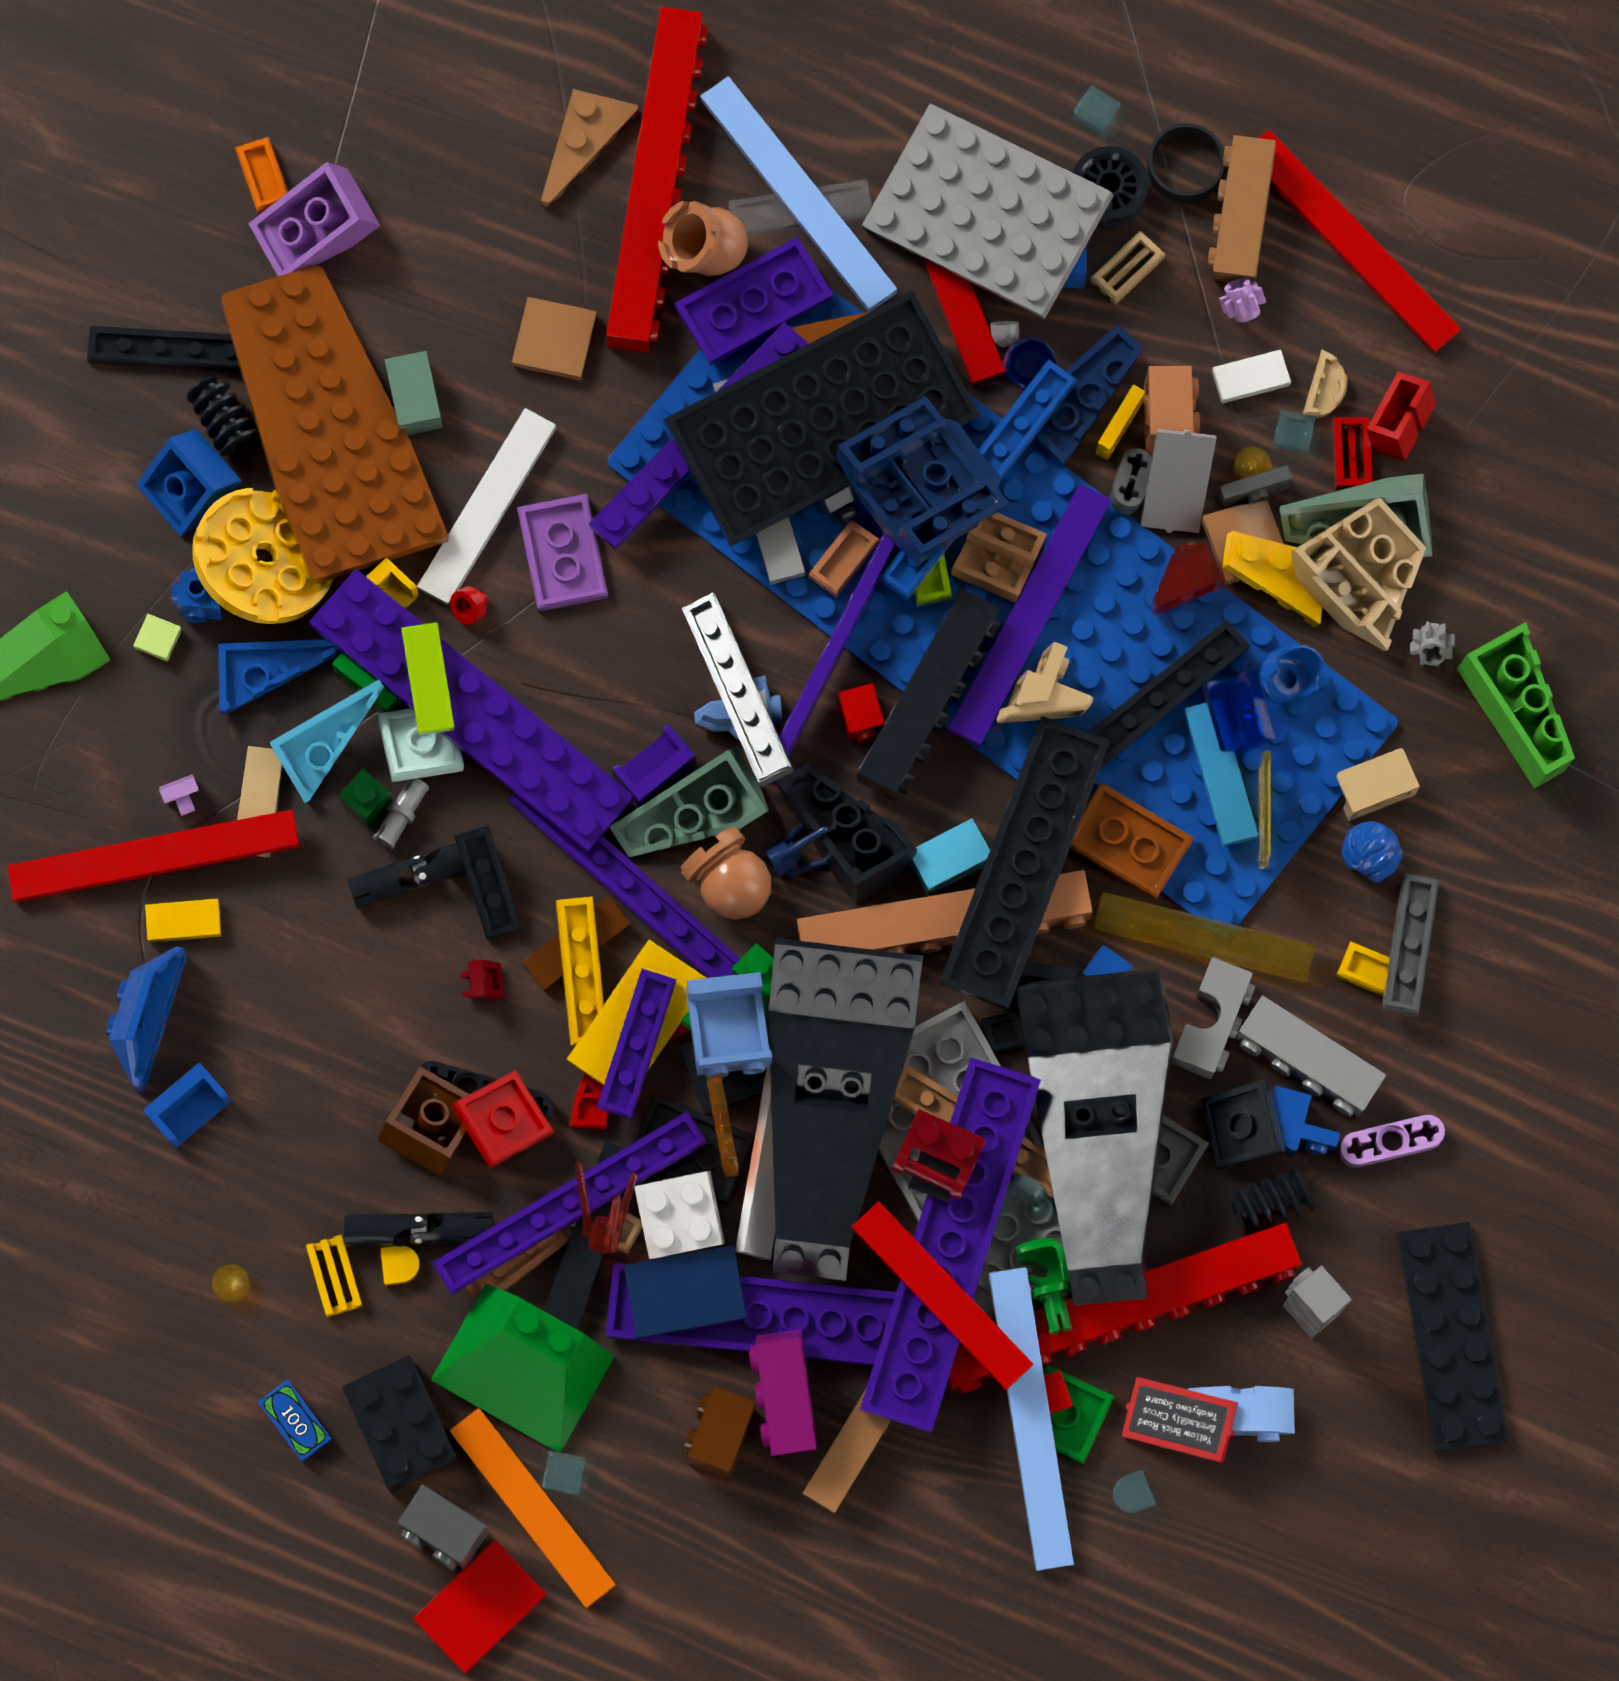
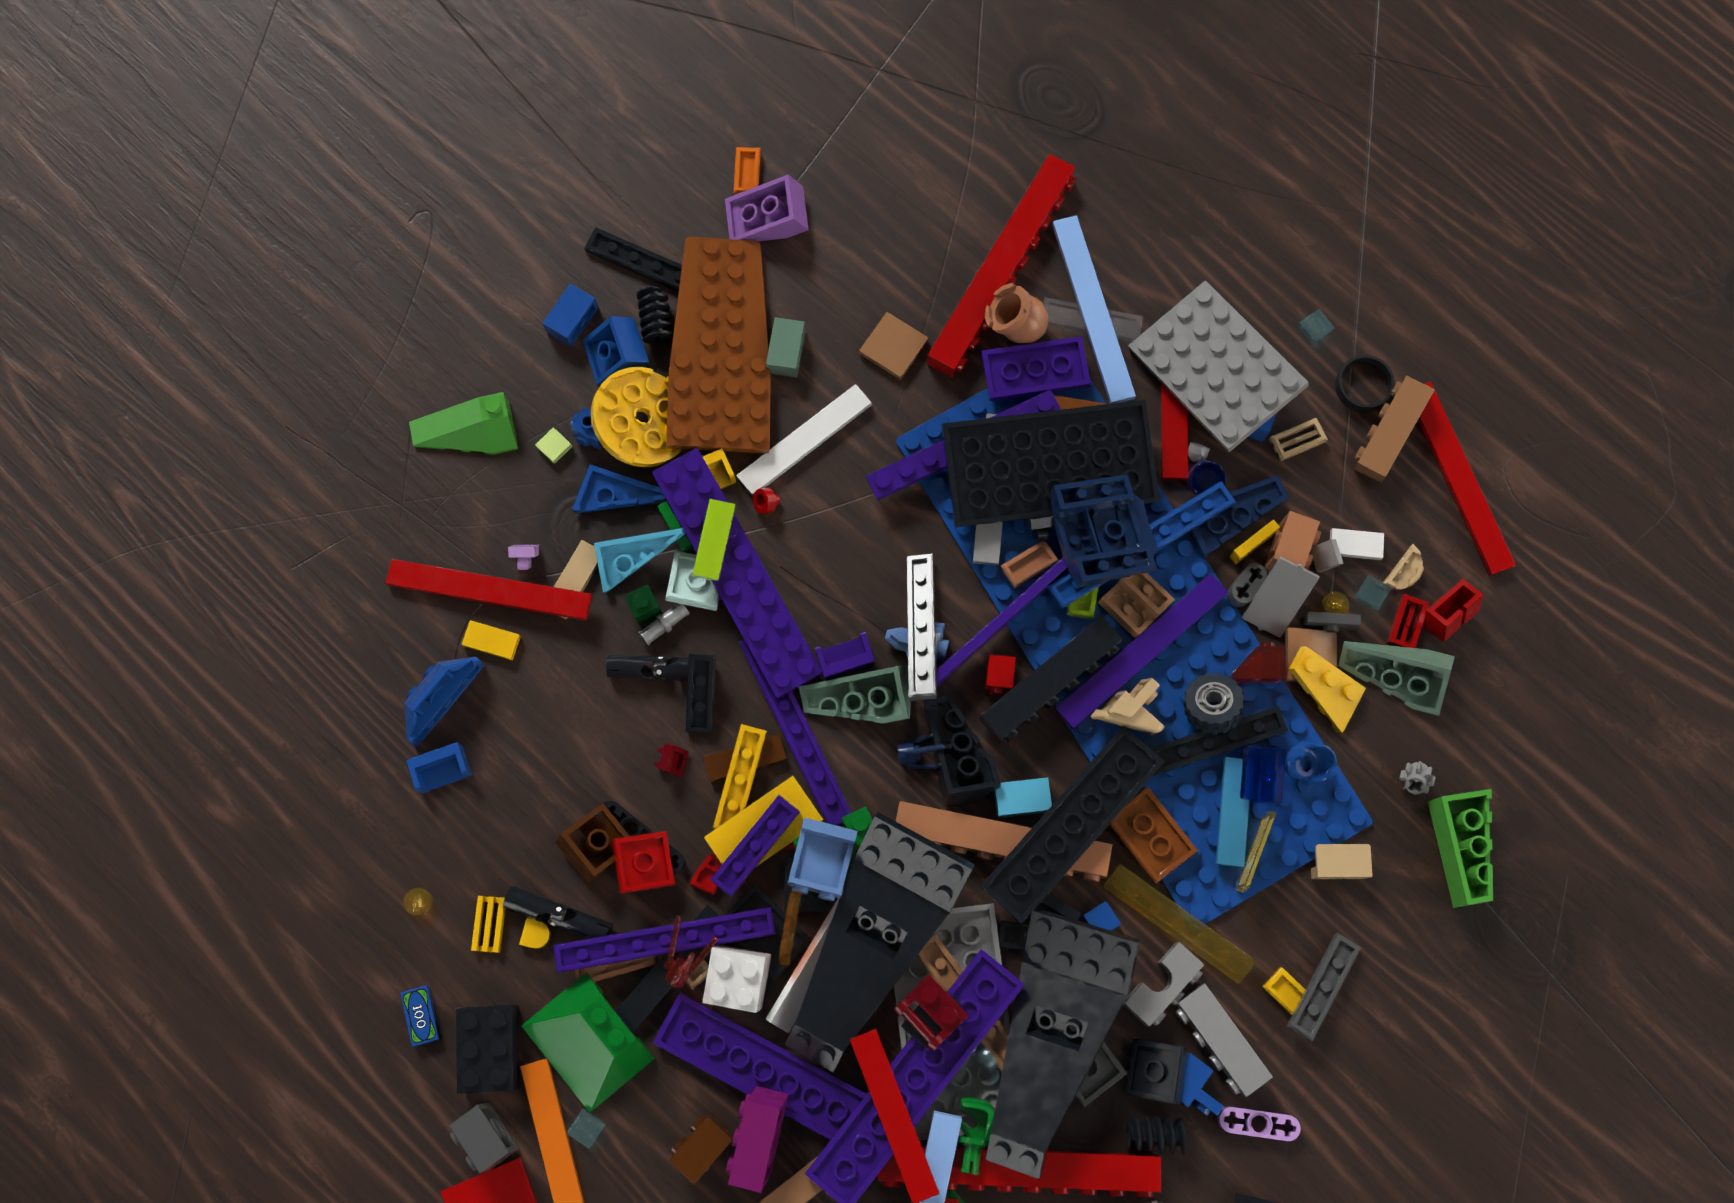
camera: 25 degrees right, 0 degrees up
(108, 456) = (570, 315): none -> blue panel
(562, 552) = (842, 489): medium lavender tile -> none
(587, 128) = (969, 217): medium nougat wing -> none
(685, 1292) = (718, 1035): dark blue tile -> none
(730, 878) = (865, 755): nougat tile -> none
(1135, 172) = (1328, 377): black wheel -> none
(1140, 628) = (1210, 717): none -> black wheel
(1218, 406) = (1326, 555): none -> light grey tile
(1242, 300) = (1370, 489): lavender gear -> none
(1362, 570) = (1386, 708): tan wedge -> none
(1372, 850) = (1320, 908): blue hair -> none

